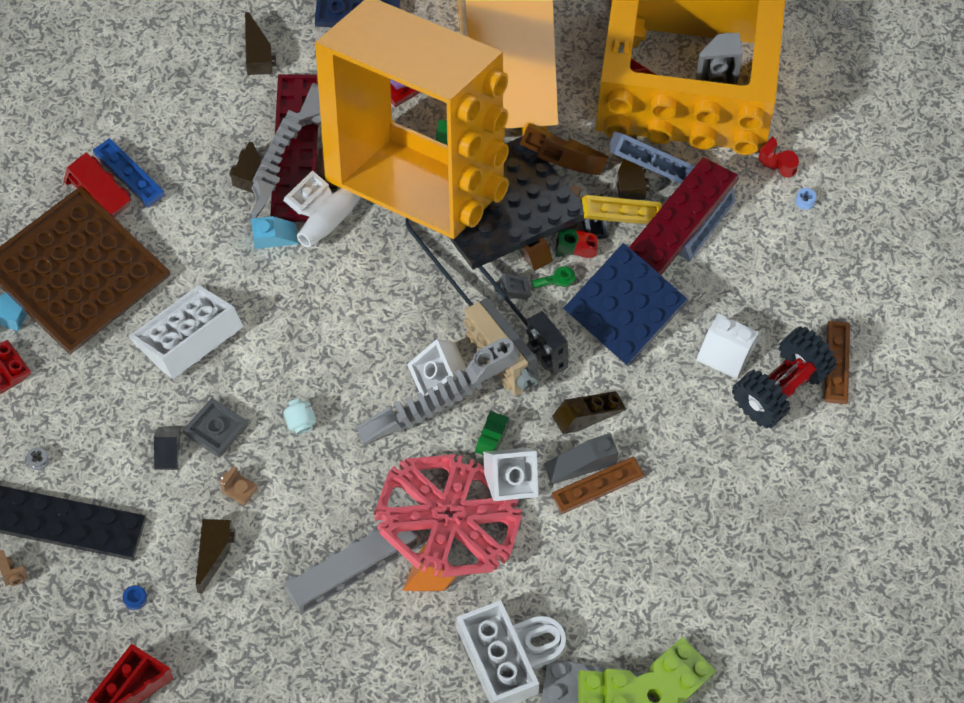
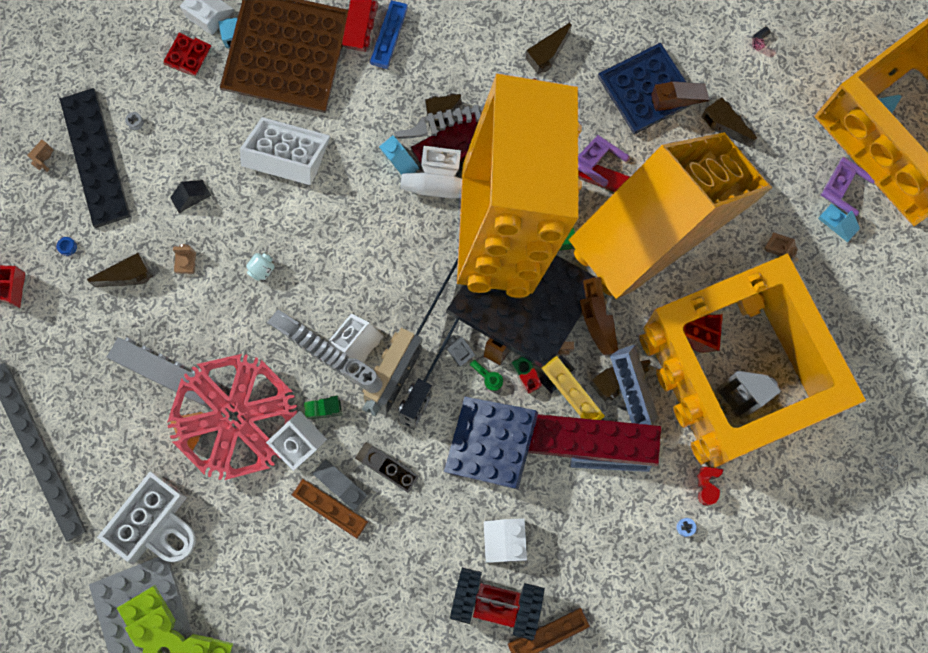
camera: 65 degrees right, 15 degrees up
(215, 427) = (221, 216): dark grey plate -> none

